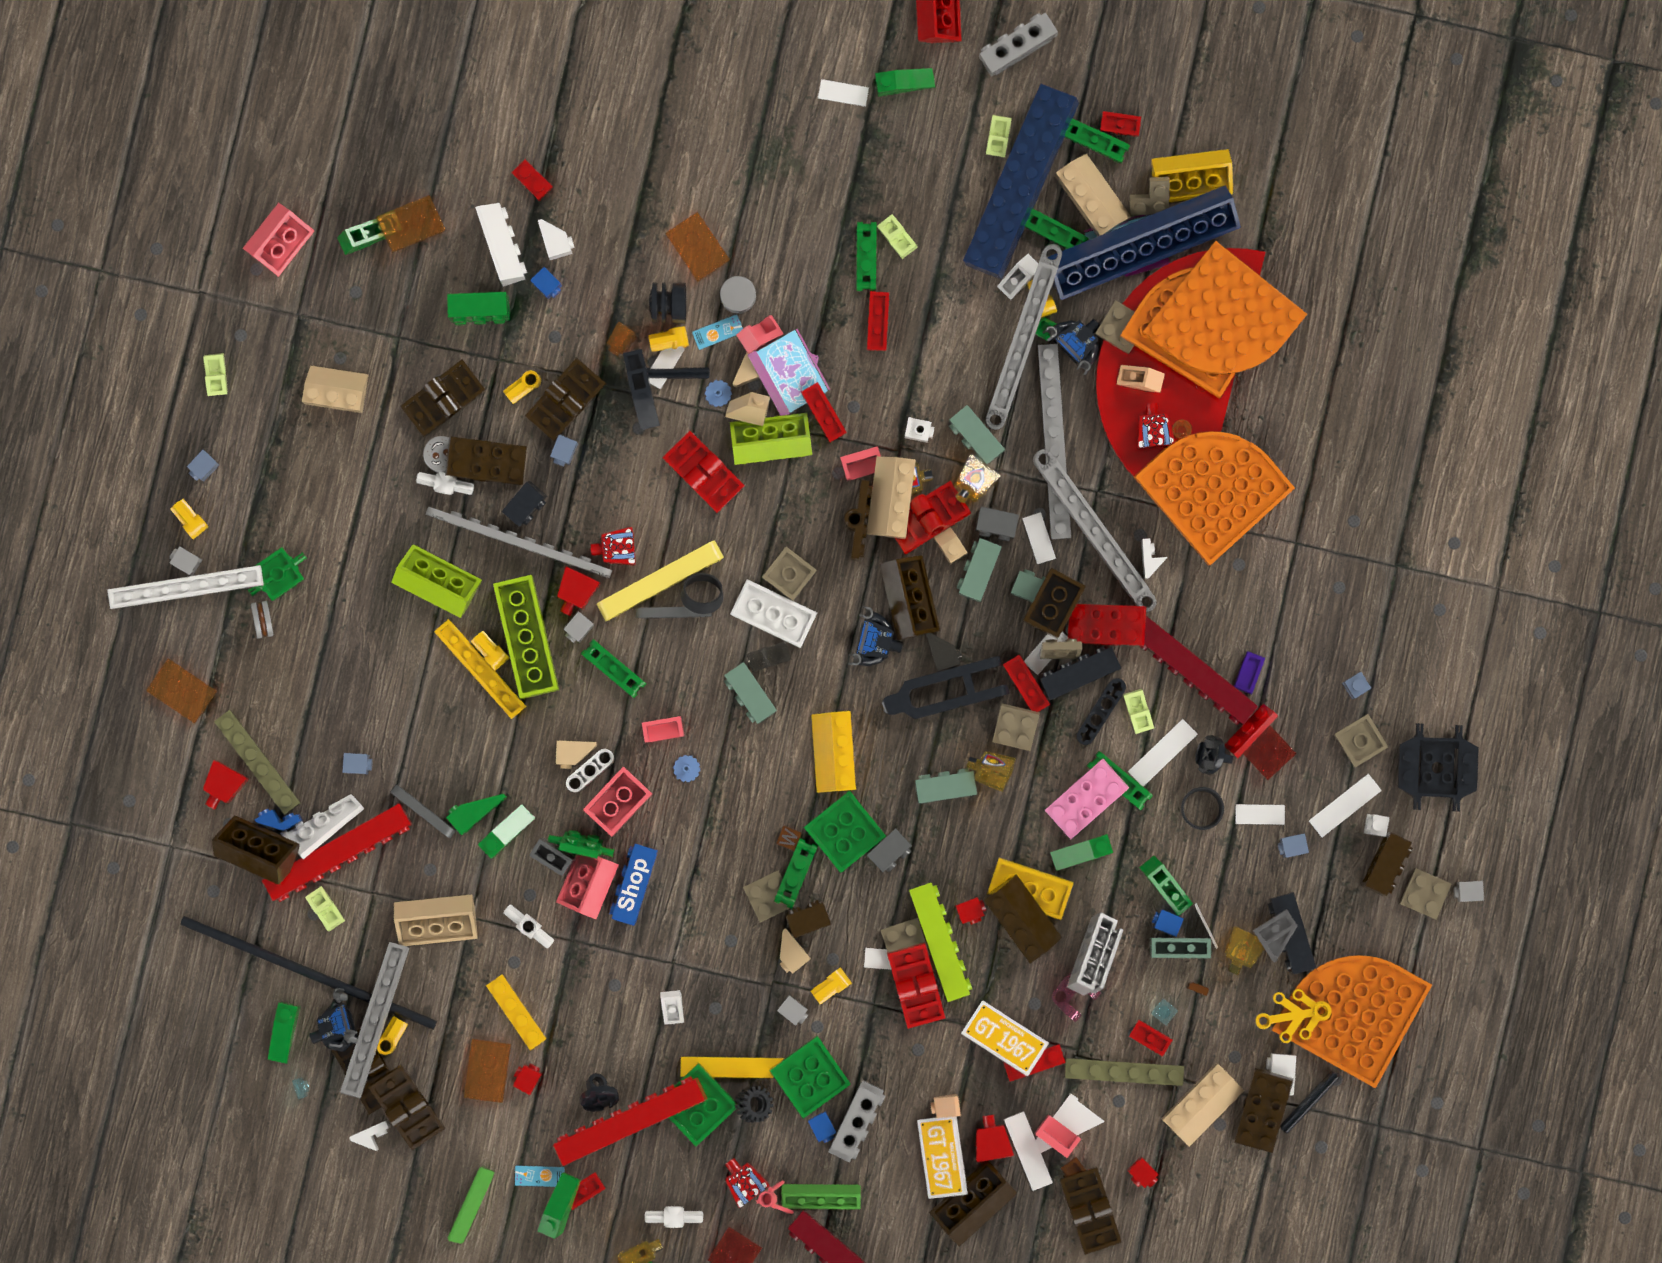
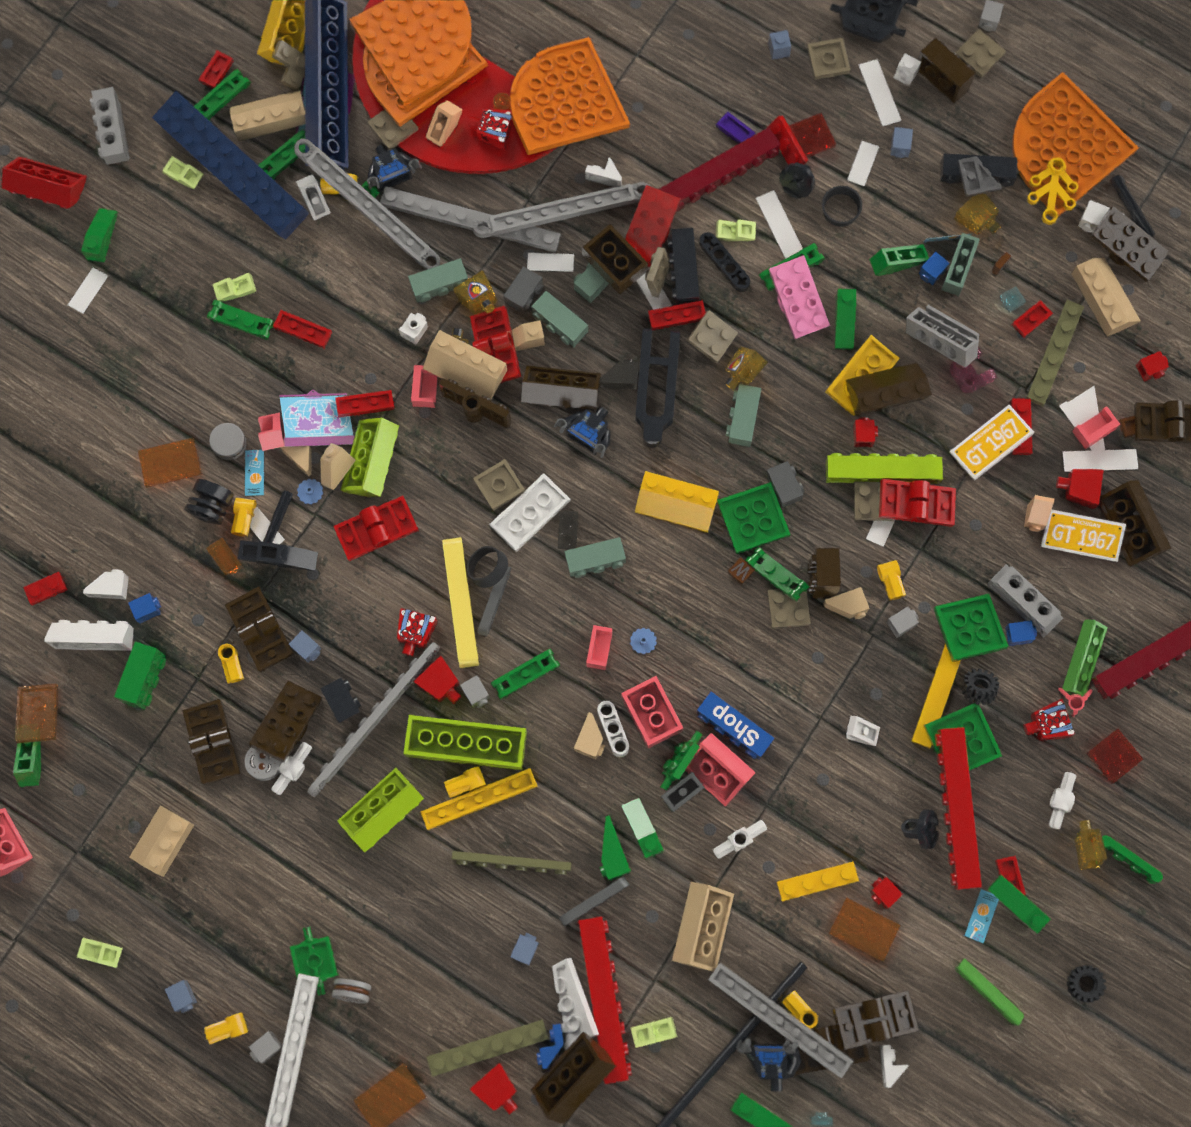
camera: 70 degrees left, 10 degrees down
(429, 713) = (520, 864): none -> olive plate

